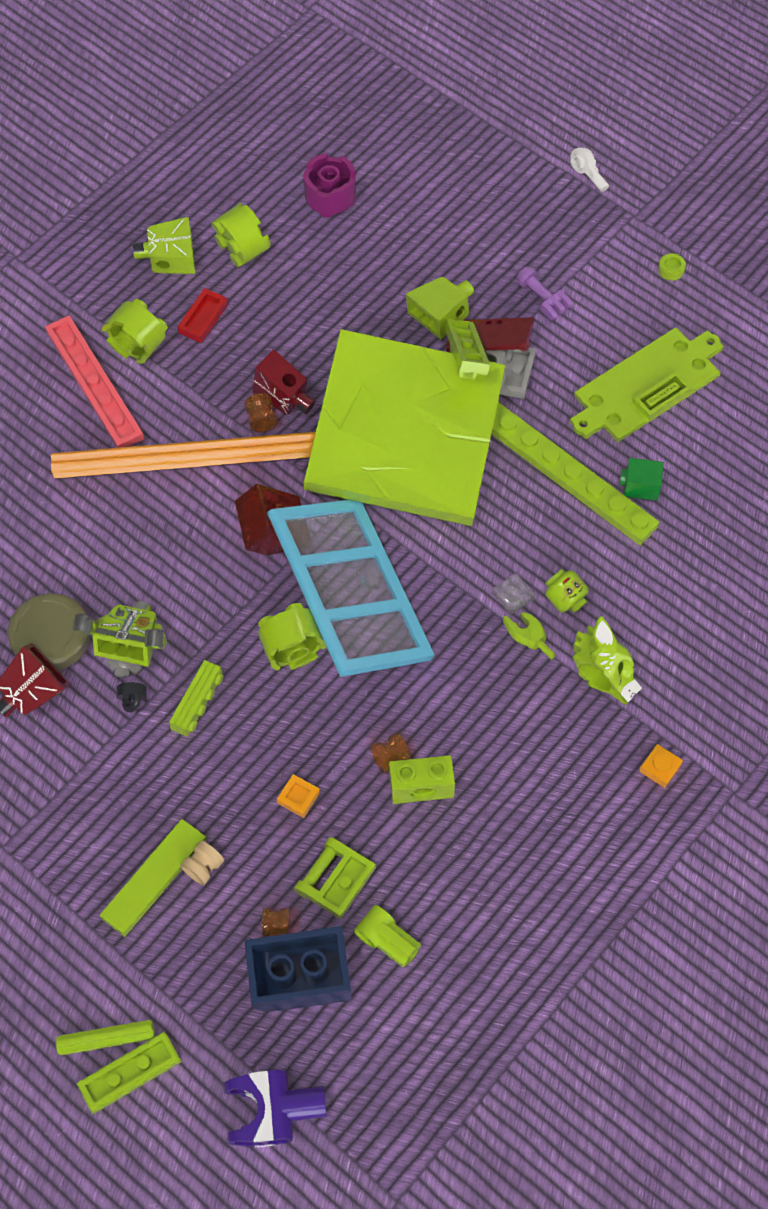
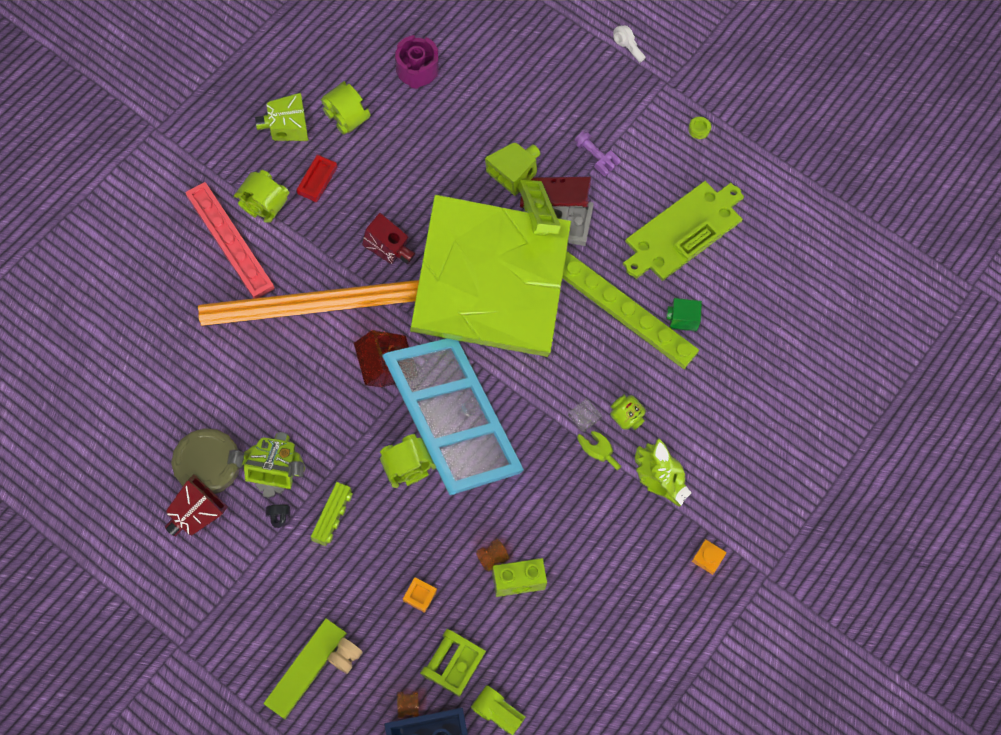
camera: 10 degrees left, 5 degrees up
(260, 411) = (370, 264): clear orange wheel -> none

